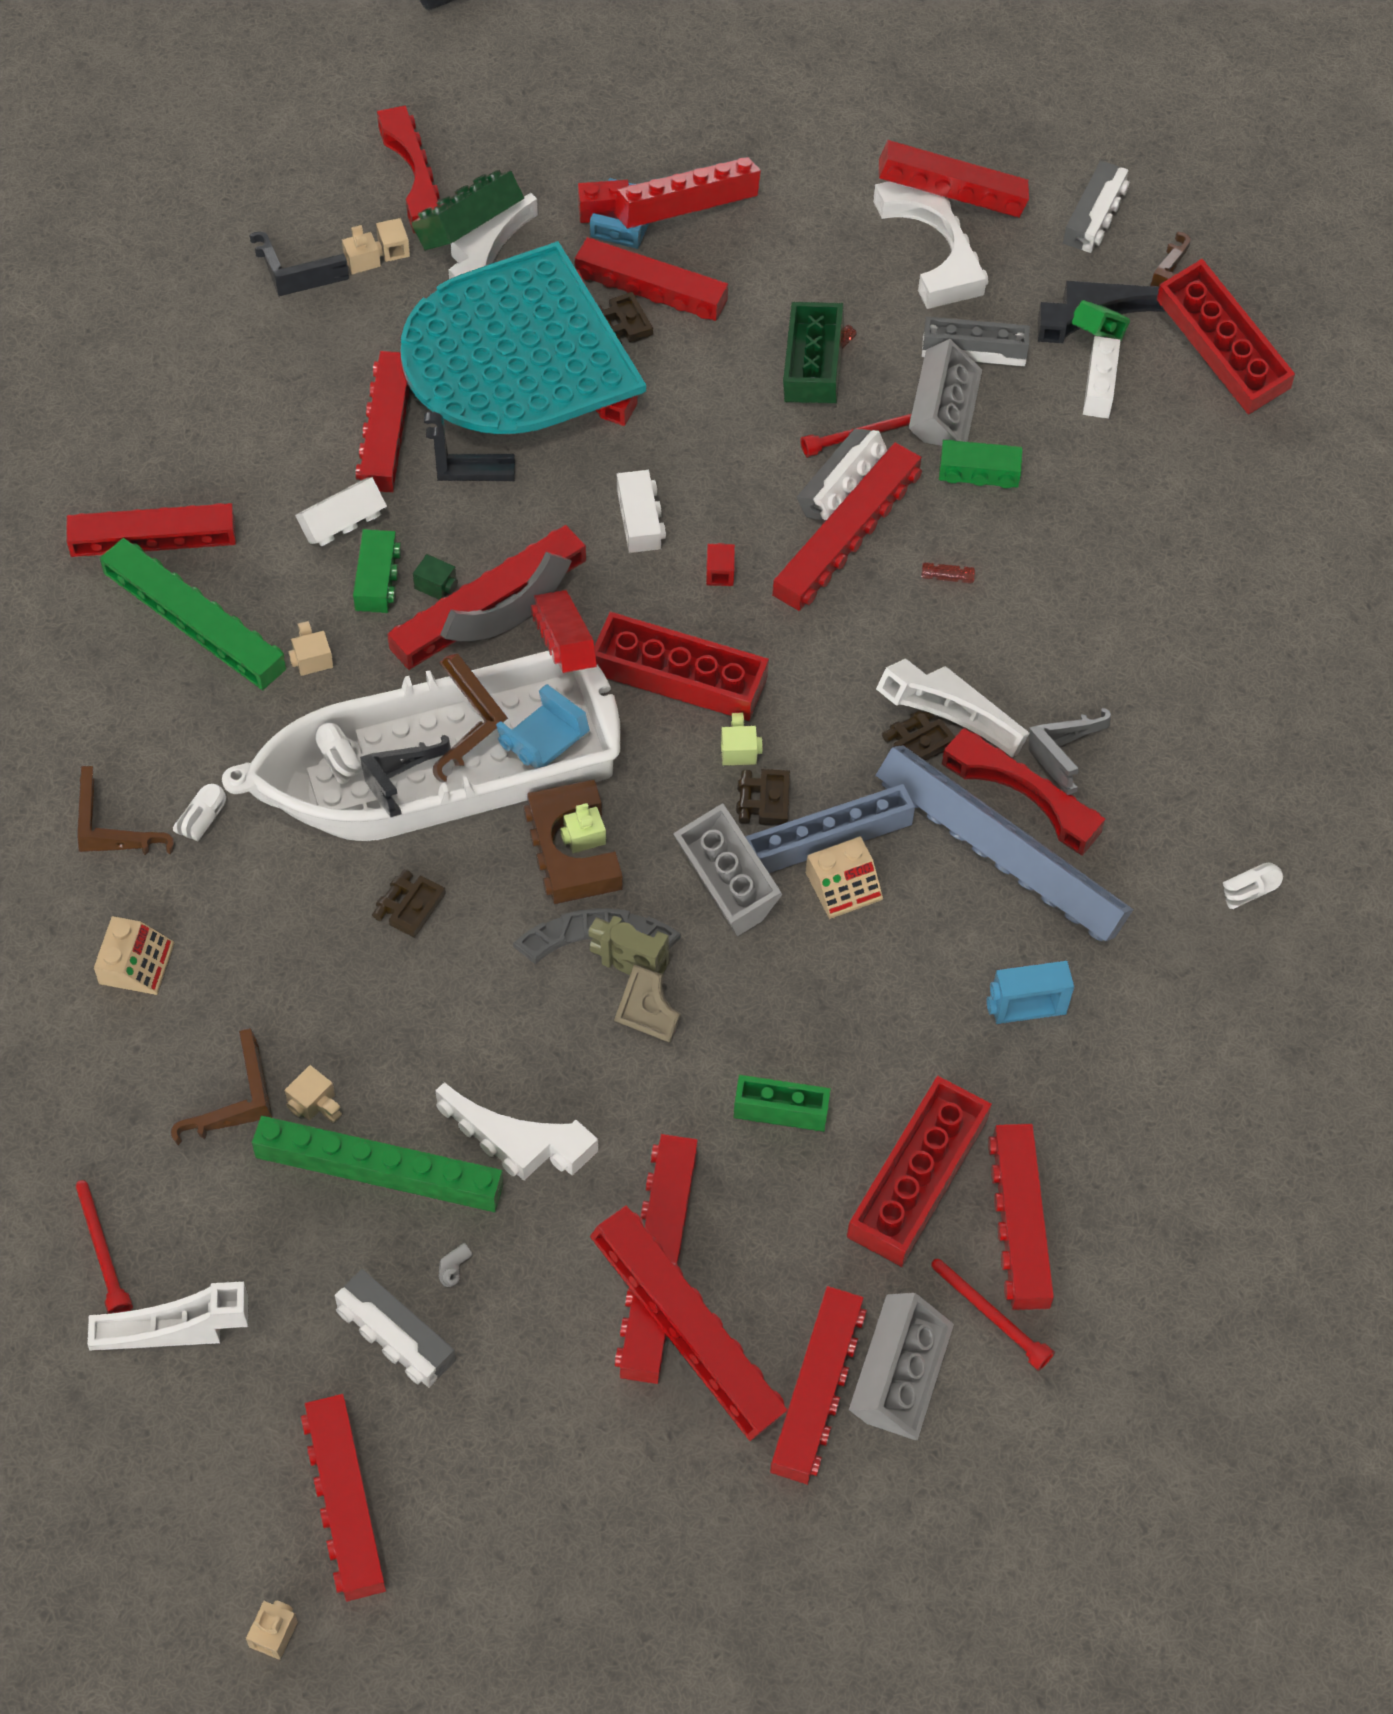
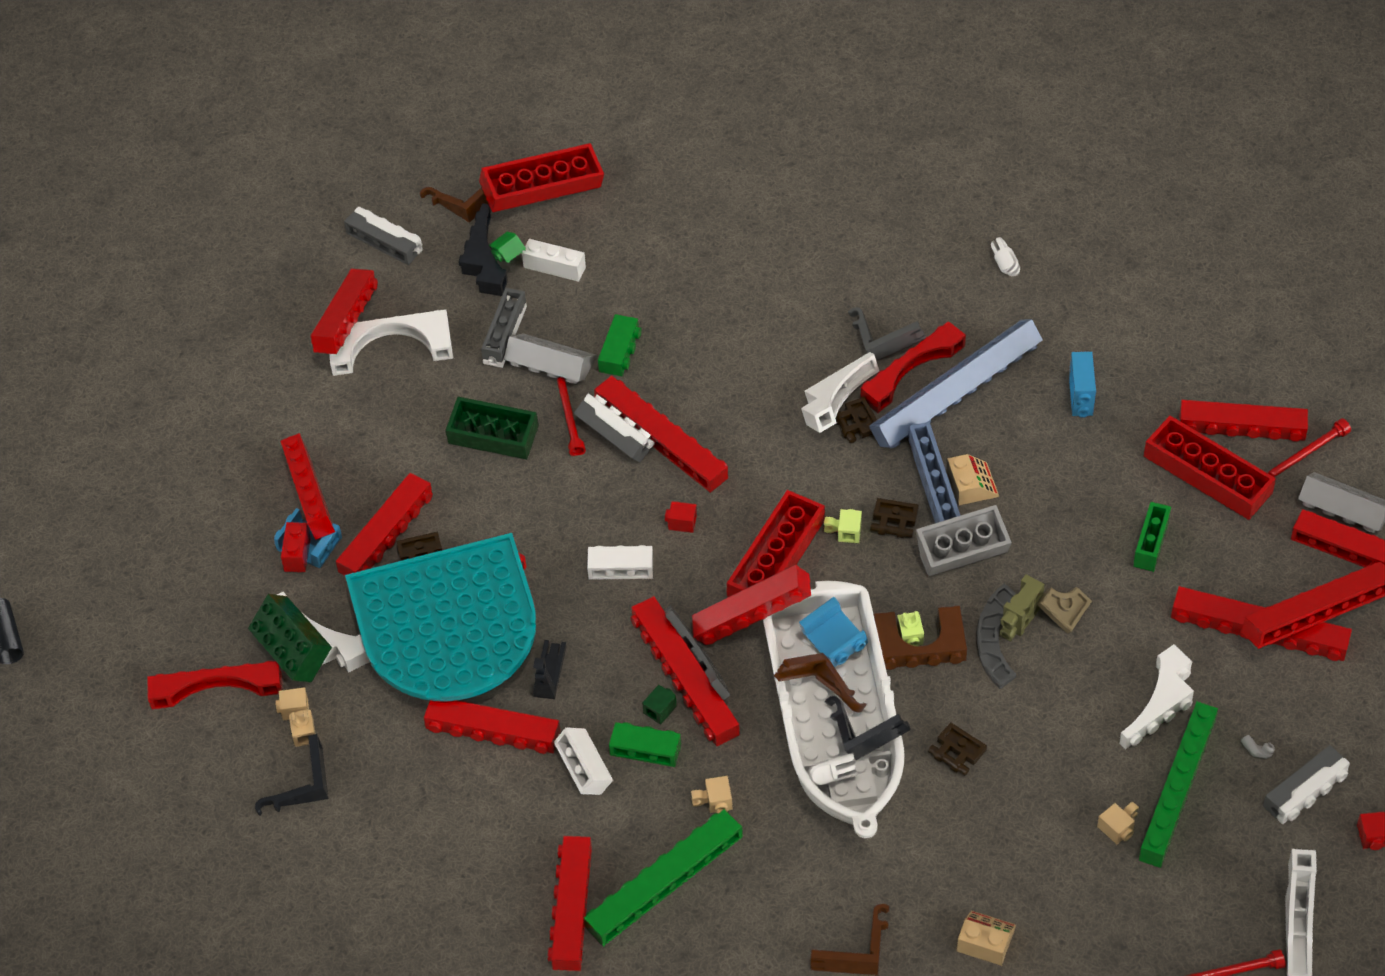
camera: 75 degrees left, 5 degrees down
(201, 812) = (854, 877): white arm -> none
(242, 1111) = (1105, 857): reddish brown hinge -> none
(948, 572) = (712, 382): clear red axle -> none

